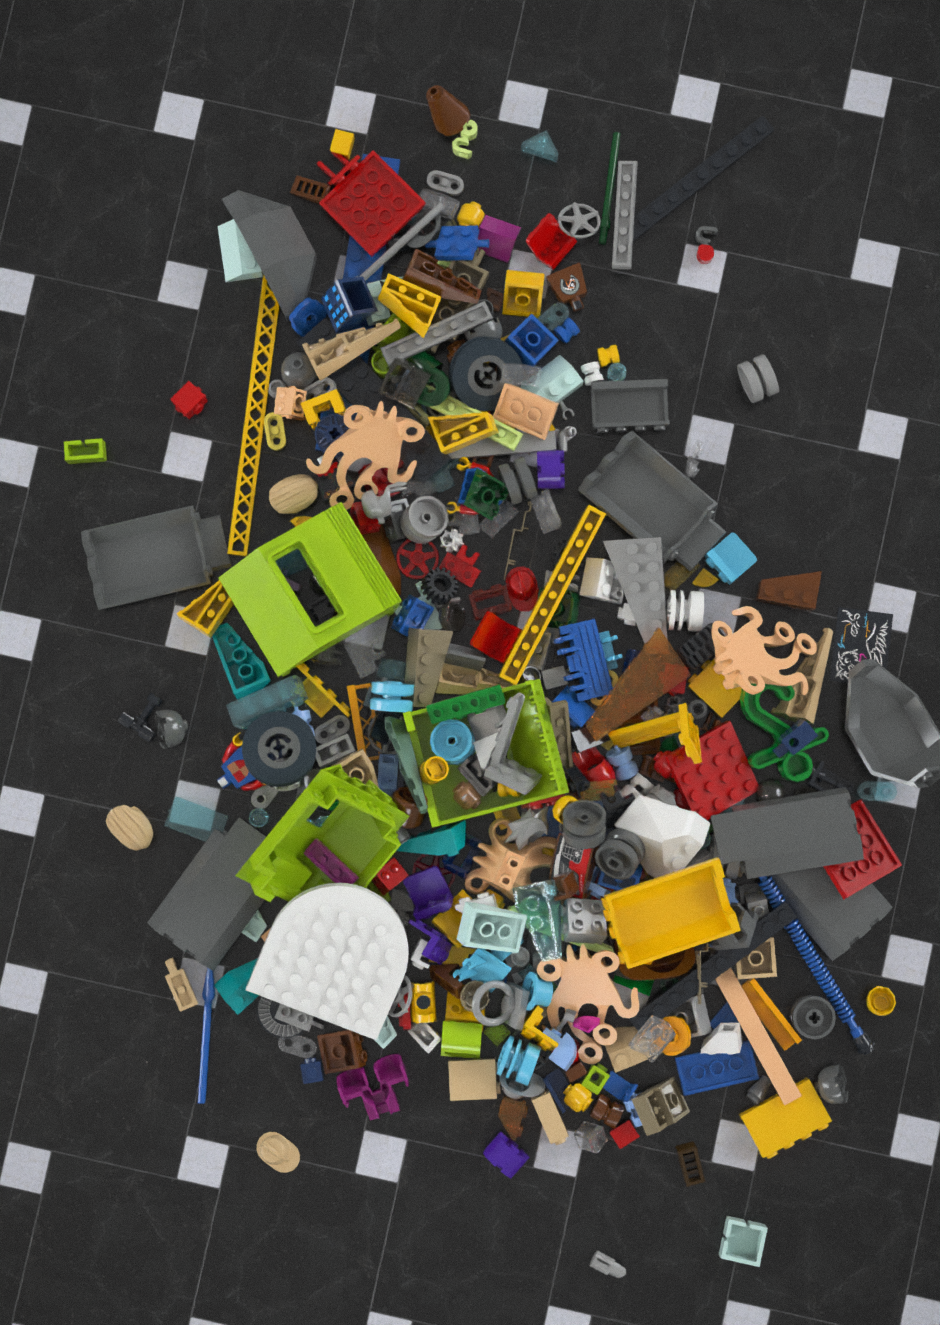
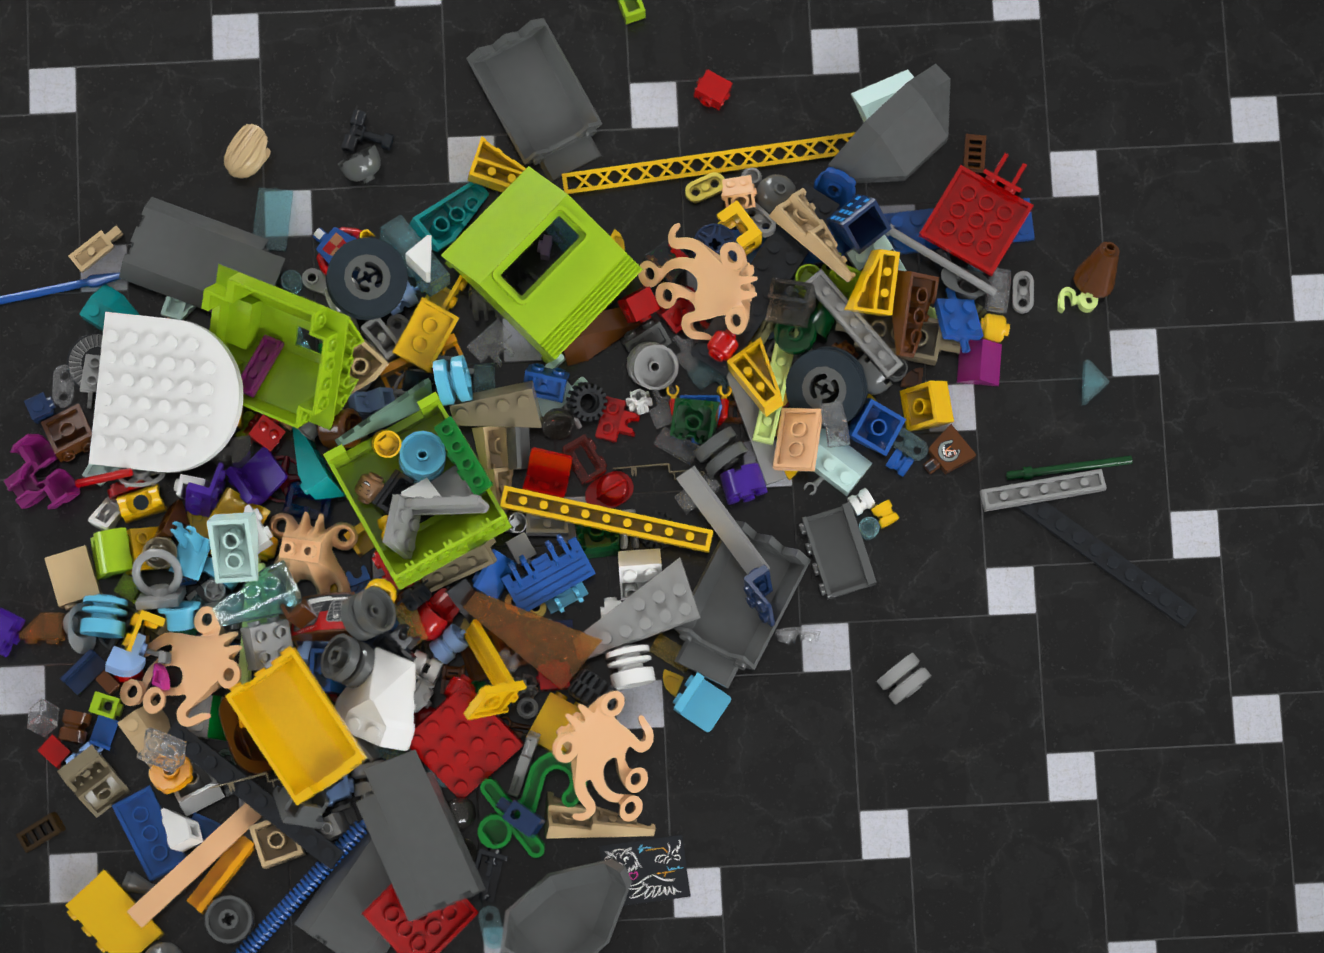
camera: 70 degrees right, 5 degrees down
(275, 696) = (419, 258): none -> white slope
(293, 494) = (642, 222): tan hair -> none
(342, 143) = (1032, 173): yellow panel -> none
(342, 711) = (425, 334): none -> yellow tile
(380, 507) = (651, 314): light grey hair -> none
(392, 1029) = (103, 477): none -> red bar
(417, 558) = (610, 372): red wheel -> none
(426, 452) = (722, 345): none -> red head
(529, 827) = (351, 560): light grey hair -> none
(549, 242) = (990, 418): red bracket -> none
(550, 1118) = (51, 667): tan brick -> none
(564, 436) = (784, 491): light grey arm -> none
(577, 1097) = (80, 691): yellow head -> none
(578, 220) = (1022, 443): light grey wheel -> none
(581, 495) = (721, 520): none -> light grey tile
(646, 483) = (756, 587): none -> dark blue bracket
(705, 252) = (1028, 586): leg -> none
(745, 725) = (524, 763): none -> light grey piece
(791, 591) = (684, 778): reddish brown wedge -> none

